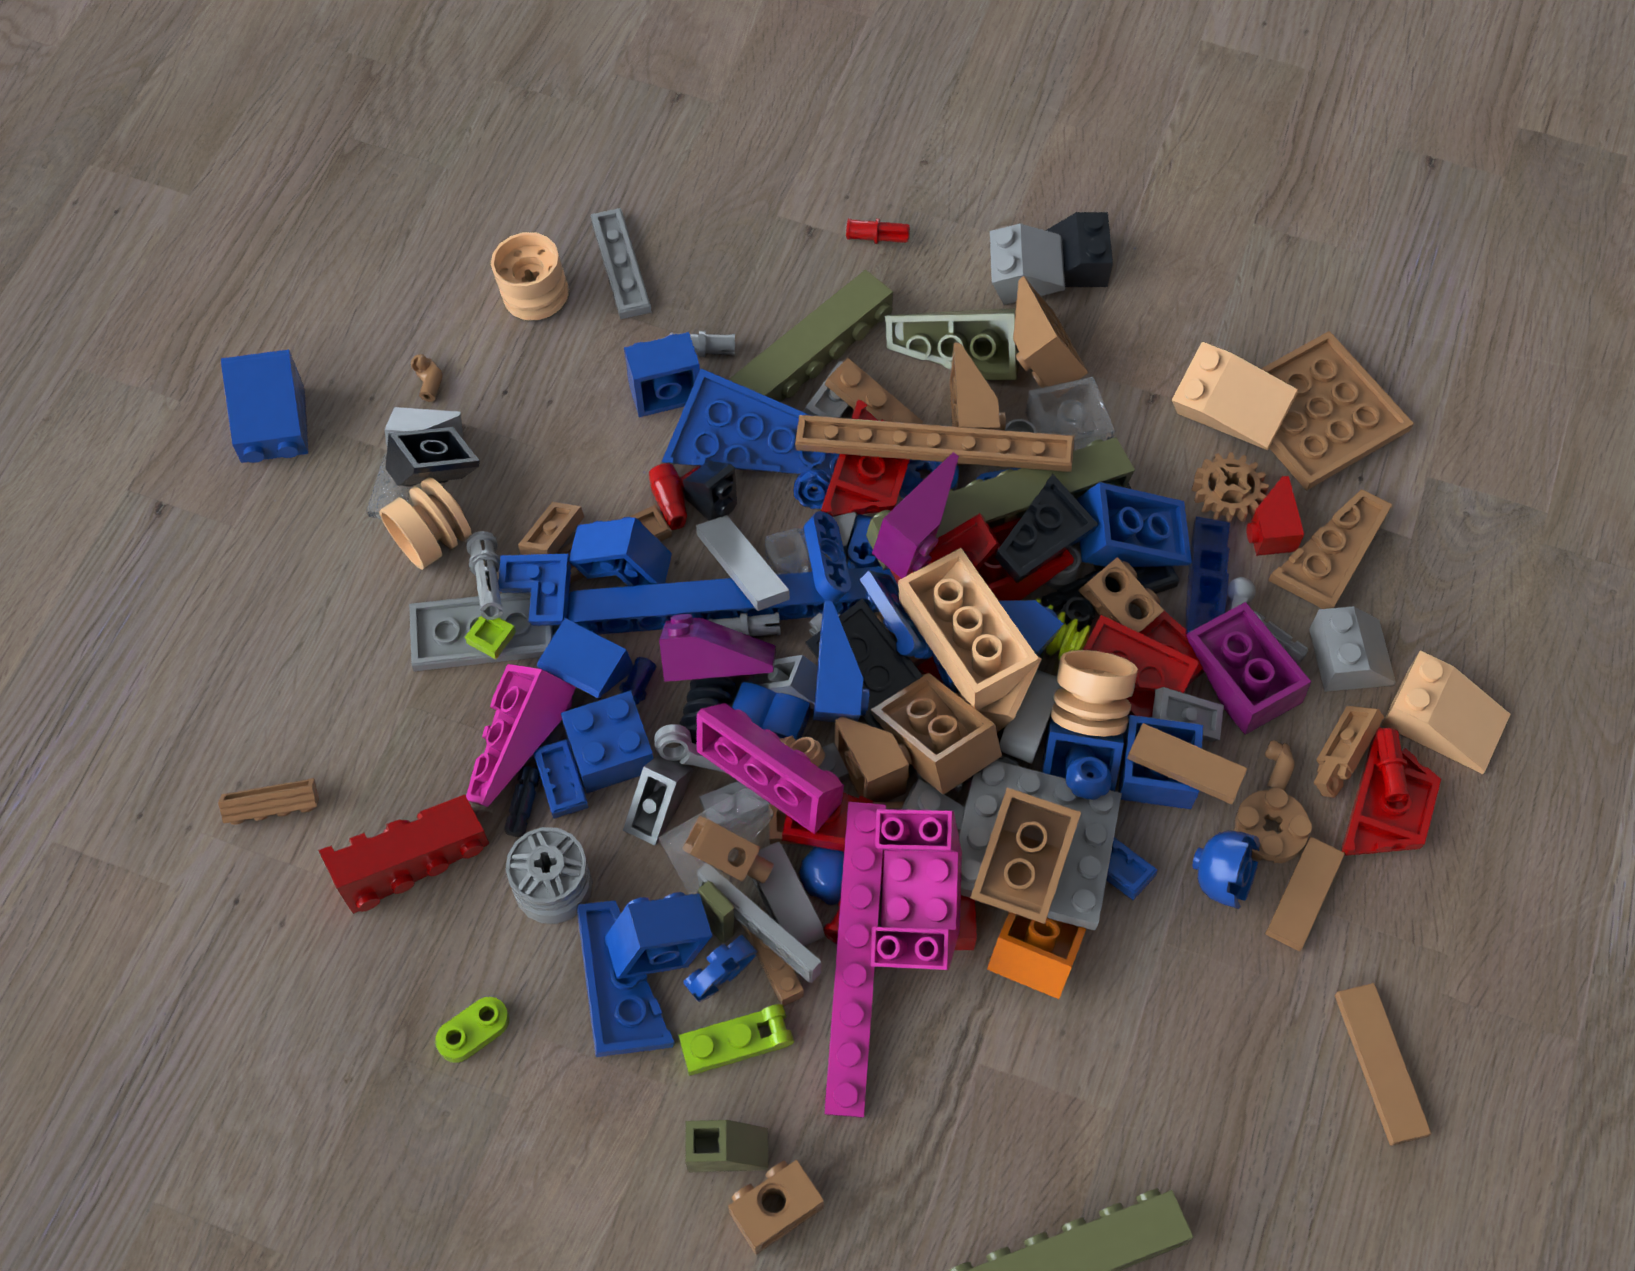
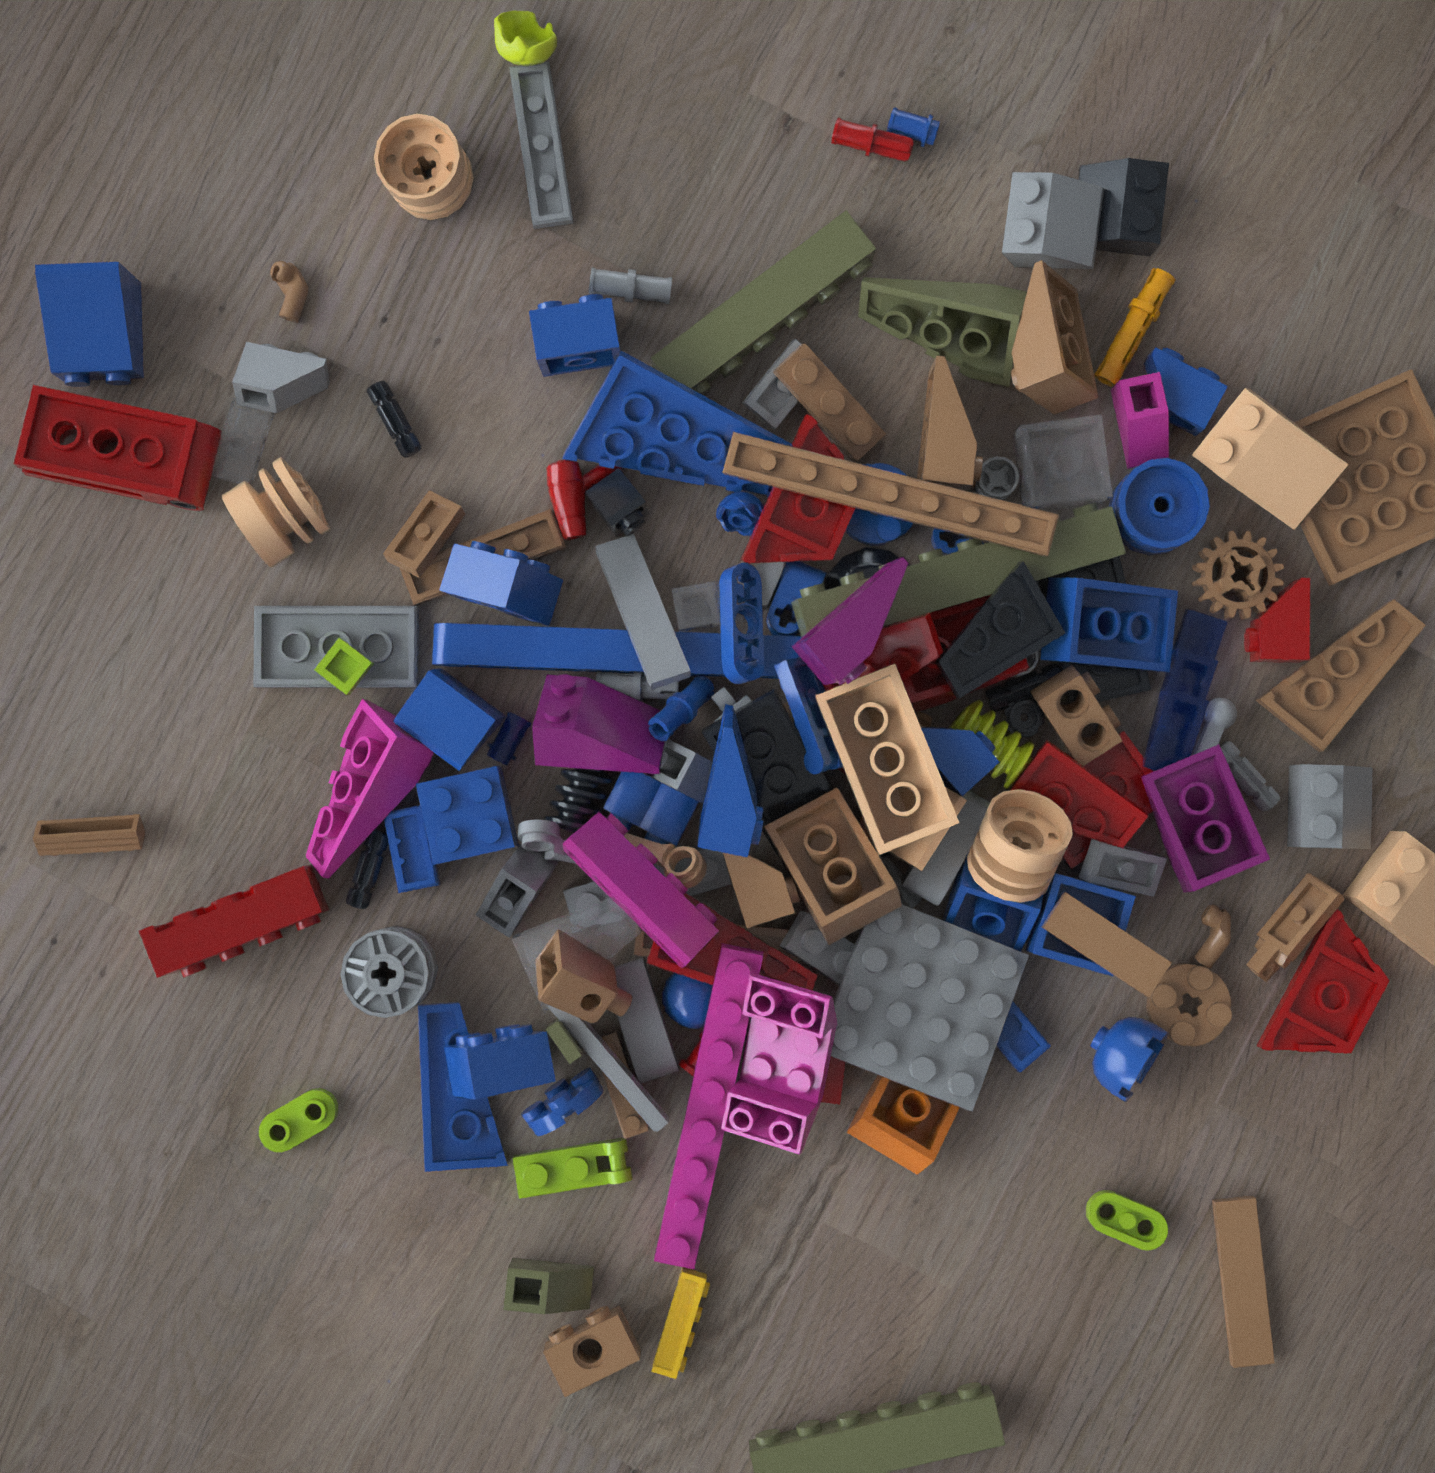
camera: 10 degrees right, 25 degrees up
(288, 495) = (156, 456): none -> red hinge
(428, 453) = (285, 425): black slope -> none
(489, 600) = (343, 574): light grey pin -> none
(519, 456) = (394, 419): none -> black axle
(547, 580) = (415, 609): blue plate -> none
(597, 195) = (522, 39): none -> neon yellow hair
(784, 632) = (681, 708): none -> blue pin
(856, 1172) = (679, 1322): none -> yellow piece
(915, 219) = (914, 126): none -> blue pin
(1025, 855) = (907, 1035): medium nougat slope -> none
(1087, 787) = (981, 943): blue plate -> none
(1110, 319) = (1142, 313): none -> light orange pin
(1126, 384) = (1142, 418): none -> dark pink slope
(1153, 365) = (1188, 391): none -> blue slope
(1156, 441) = (1179, 493): none -> blue wheel
(1259, 1018) = (1125, 1219): none -> lime plate
(1304, 894) = (1207, 1086): medium nougat tile -> none
(1392, 765) = (1338, 962): red axle -> none

